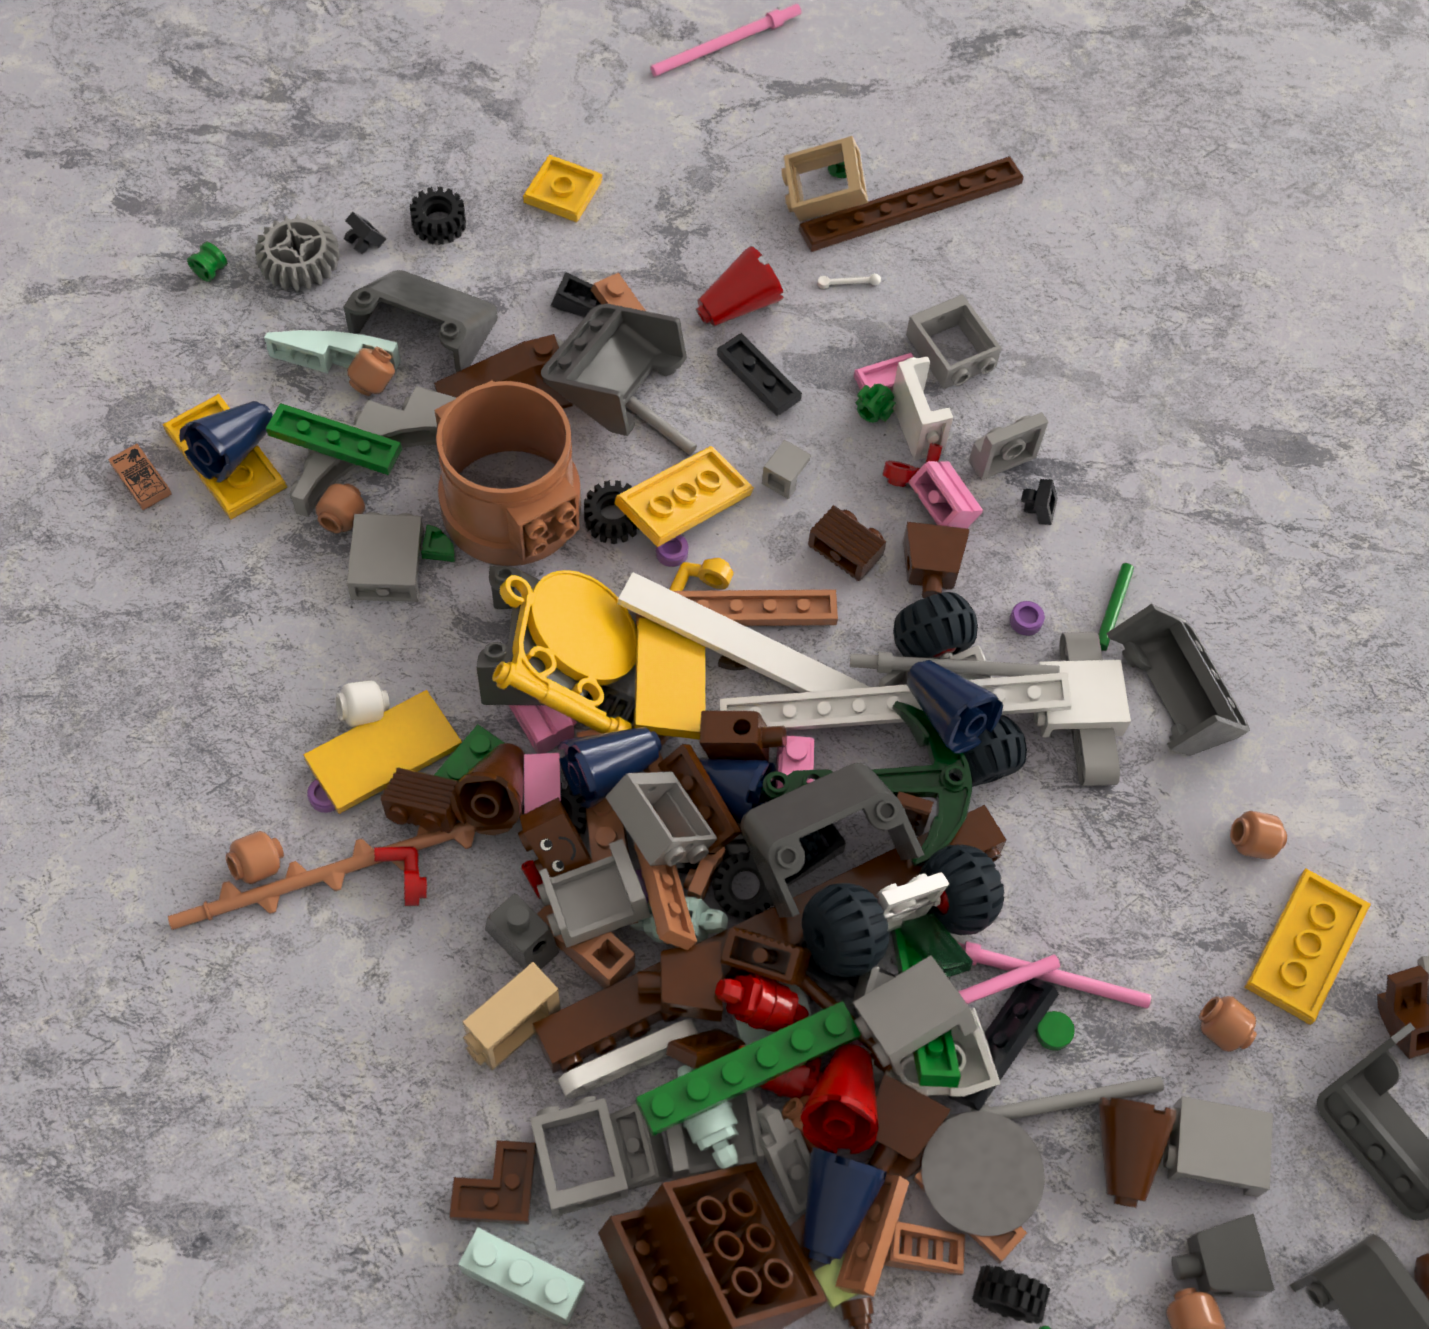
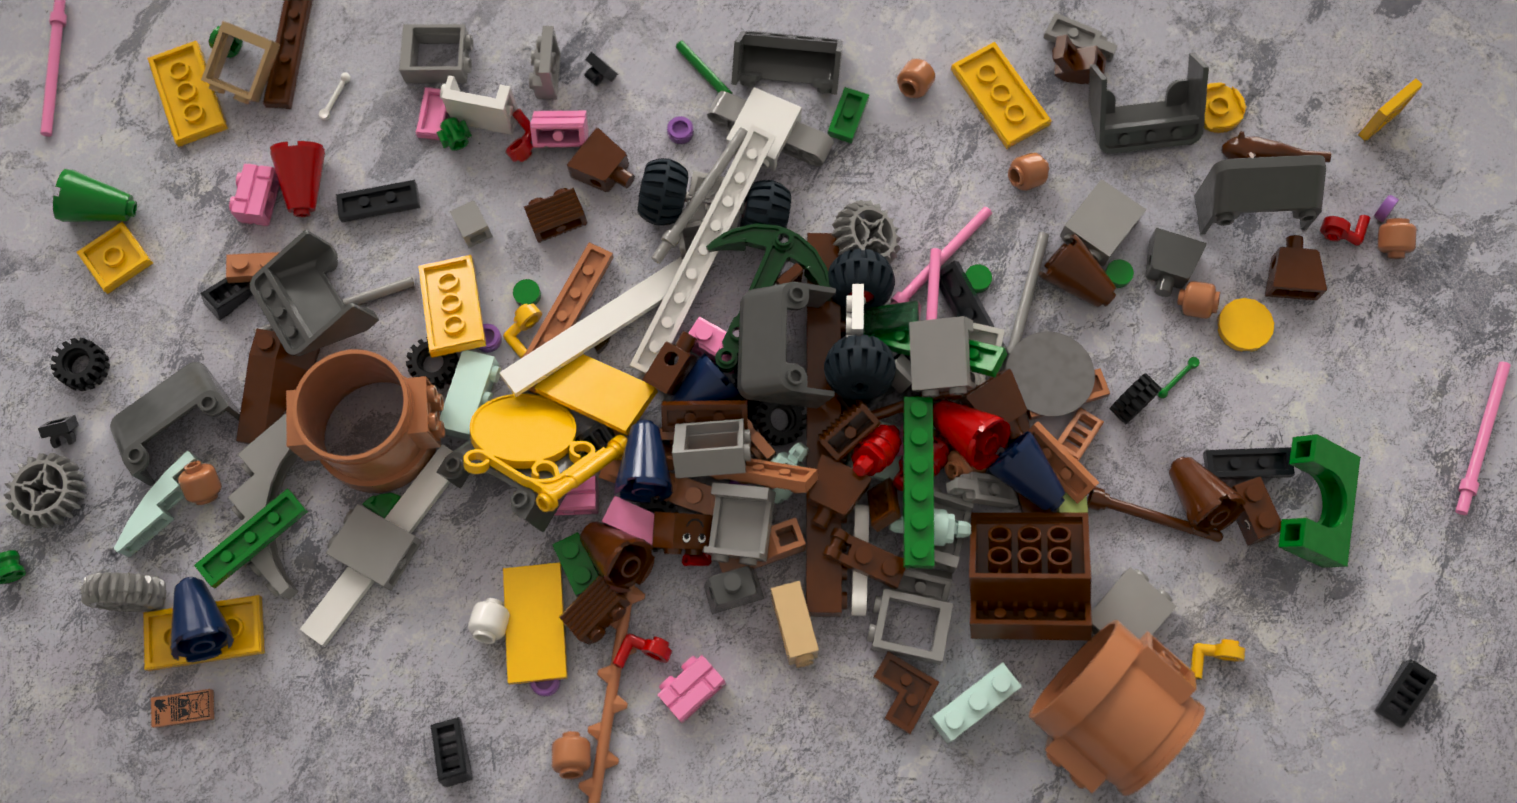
camera: 55 degrees left, 10 degrees up
(200, 756) = (456, 776): none -> black slope
(226, 363) = (123, 592): none -> light grey gear
(332, 560) = (353, 585): none -> white tile
(338, 507) = (310, 562): nougat head -> none
(387, 944) = (690, 688): none -> bright pink brick
(604, 134) = (90, 200): none -> green cone
(604, 557) = (469, 391): none -> light aqua brick
(628, 1057) = (865, 558): none -> reddish brown plate
(695, 265) = (255, 194): none -> bright pink brick
(744, 561) = (526, 292): none -> green tile
(755, 167) = (186, 99): none -> yellow tile
(954, 705) = (733, 210): dark blue cone -> none
(1022, 841) = (866, 227): none -> light grey gear
(1162, 783) = (848, 115): none -> green plate
(1168, 1201) = (1120, 272): none -> green tile

